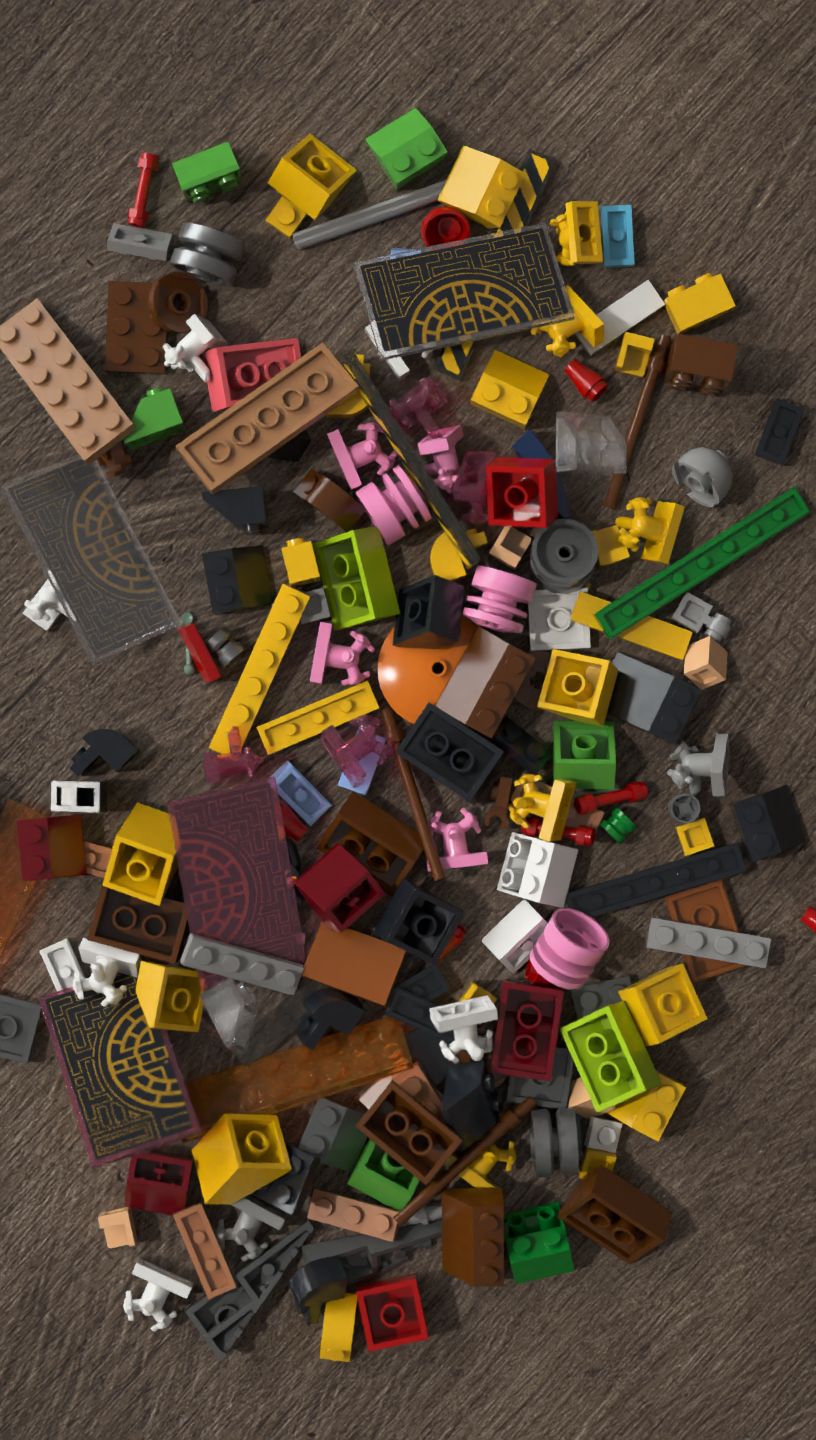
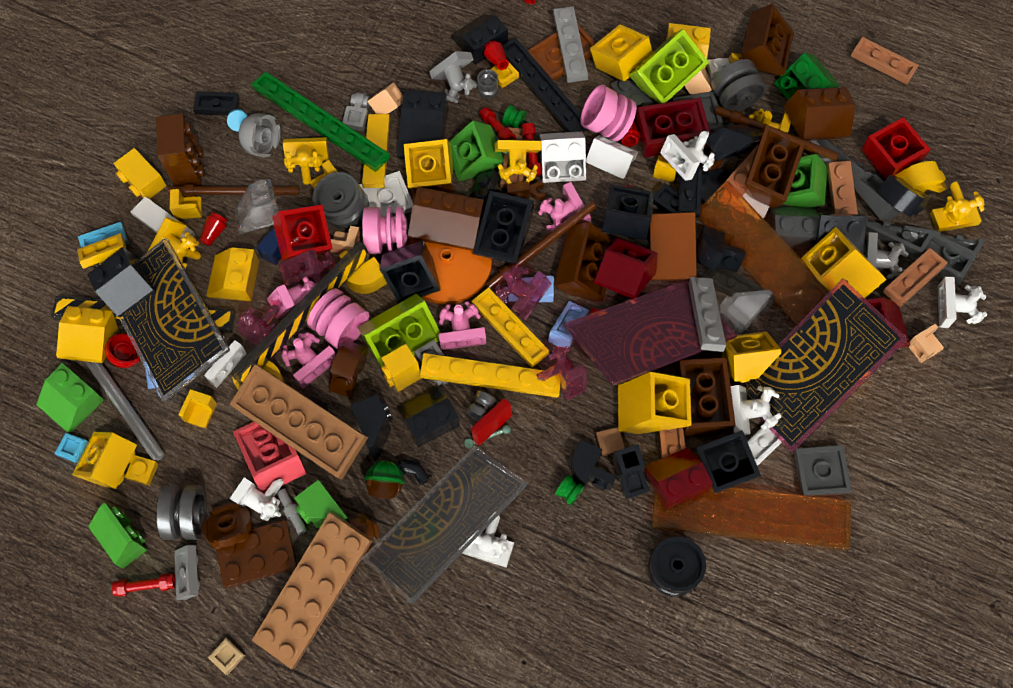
camera: 110 degrees left, 20 degrees down
(30, 265) = (226, 656): none -> tan tile
(48, 915) = (729, 461): none -> black slope
(85, 717) = (569, 490): none -> green wheel
(130, 788) = (609, 441): none -> medium nougat tile
(170, 503) = (384, 480): none -> piece
(173, 382) = (290, 511): none -> light grey bar
(178, 540) = (414, 468): none -> black arm
(278, 1353) = (957, 212): none -> yellow piece
(339, 303) = (197, 409): none -> yellow panel
(344, 139) = (71, 447): none -> medium azure tile
(530, 248) = (121, 282): none -> slope
(537, 1366) = (884, 60): none -> nougat plate
(720, 833) = (495, 54): none -> red cone
(741, 454) = (235, 118): none -> medium azure tile

